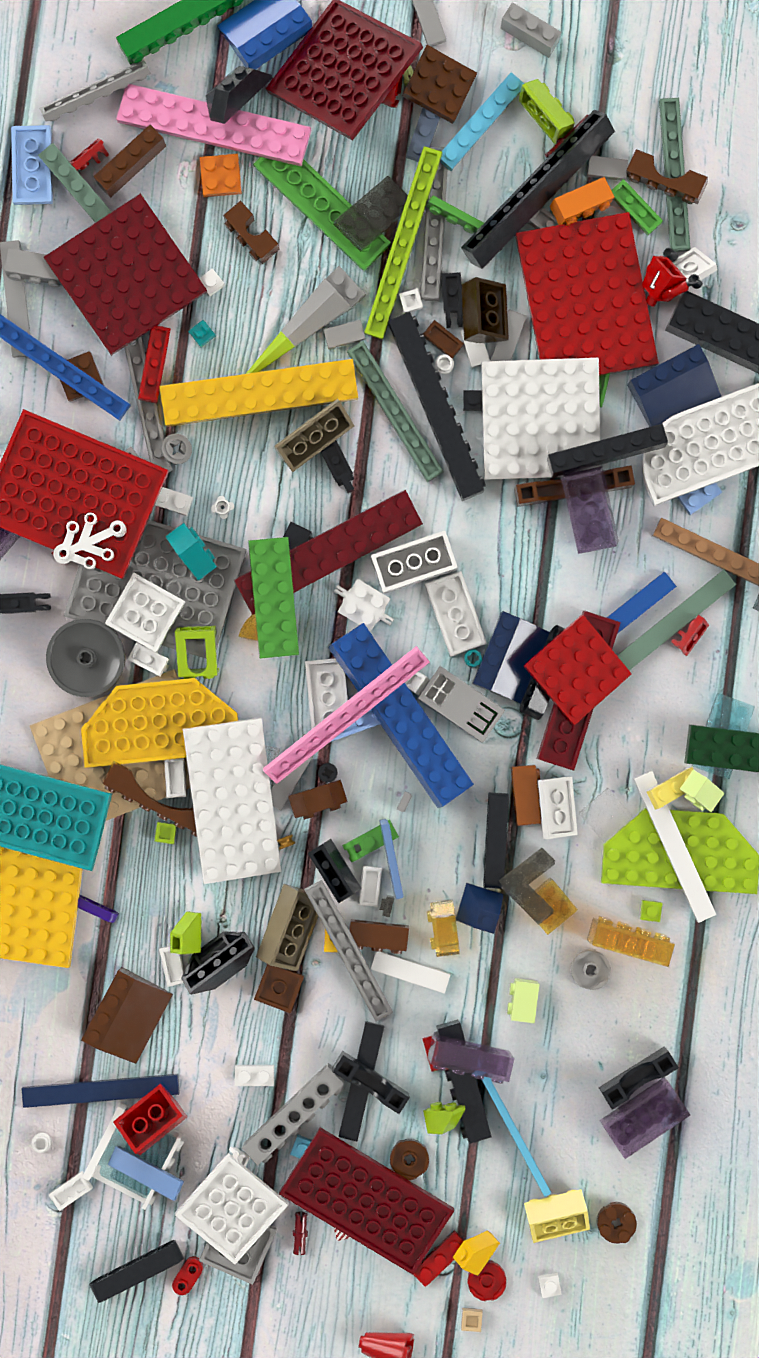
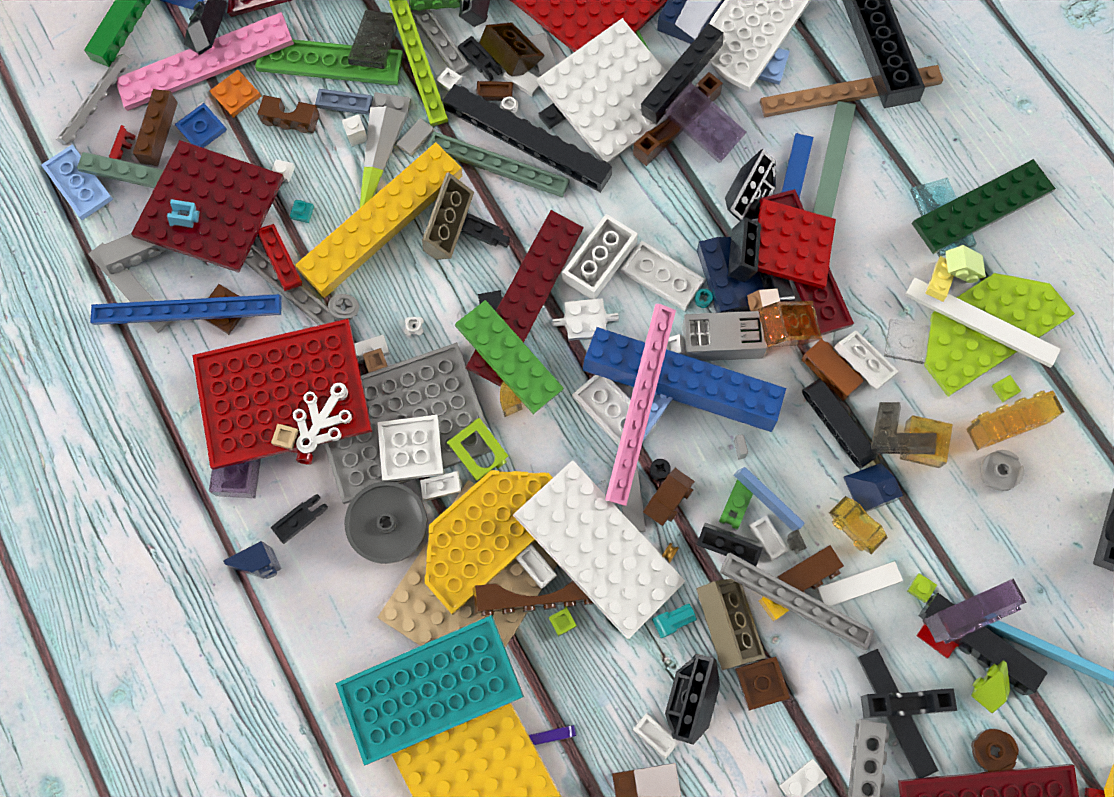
camera: 30 degrees left, 15 degrees down
(49, 536) = (285, 436): none -> tan plate
(96, 274) = (183, 214): none -> medium azure window
(169, 188) = (201, 126): none -> blue plate
(169, 515) = (375, 360): none -> medium nougat plate
(186, 935) = (647, 695): lime slope -> none
(191, 551) = (414, 369): teal brick -> none
(245, 893) = (669, 622): none -> teal piece
(296, 291) = (354, 130): none -> white brick
(306, 254) = (344, 101): none -> sand blue plate
(455, 1008) = (922, 588): none -> lime plate
(514, 700) = (762, 298): none -> brick
(517, 736) = (789, 323): none -> clear orange brick
(523, 1001) = (972, 536): yellowish green brick -> none
(531, 647) = (744, 250): none -> black brick
(587, 592) = (751, 184): none -> black wedge
(696, 630) = (854, 154): red plate -> none

